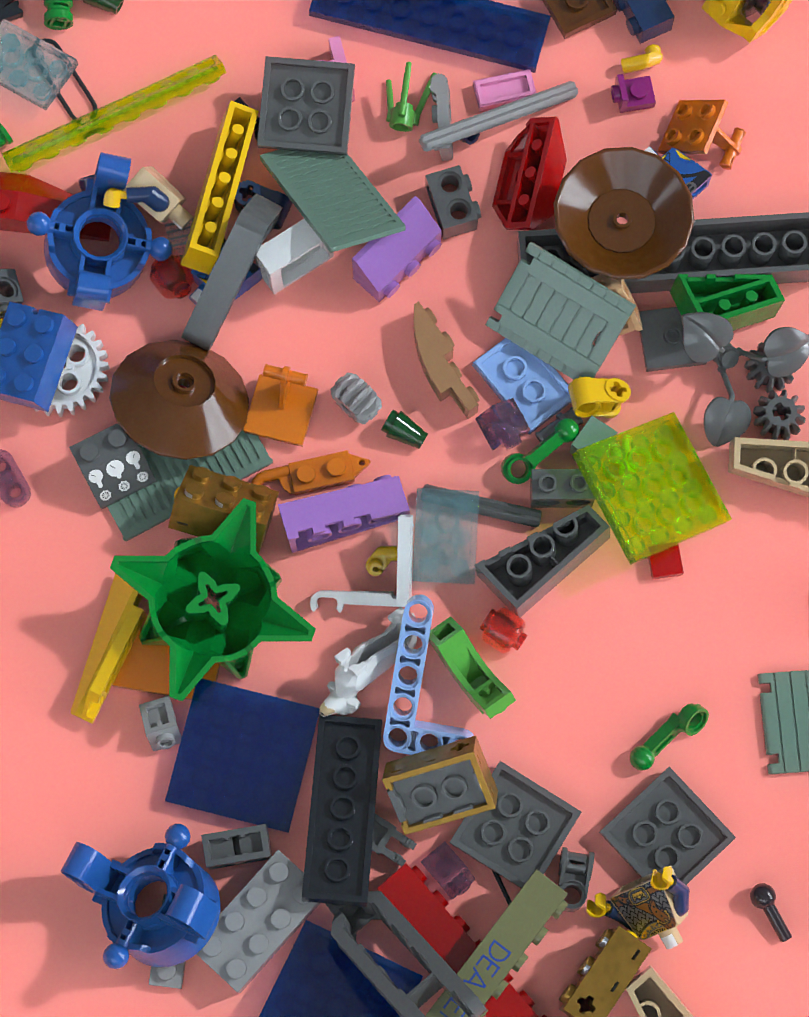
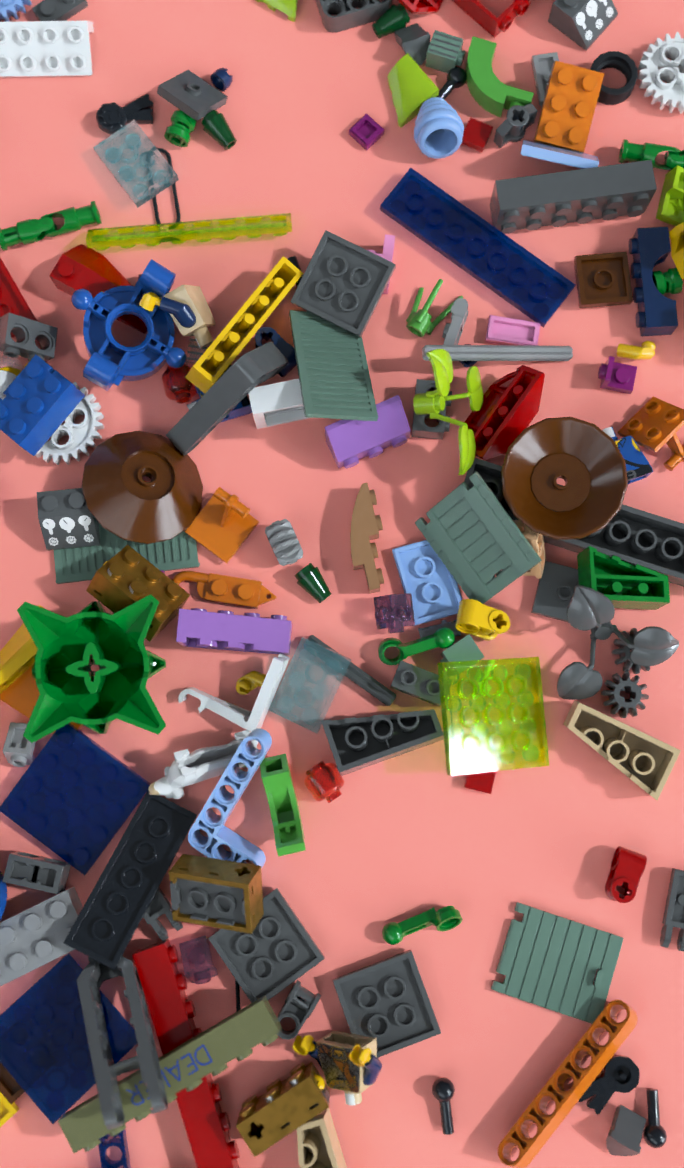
camera: 25 degrees right, 5 degrees up
(454, 191) = (434, 401): none -> lime plant

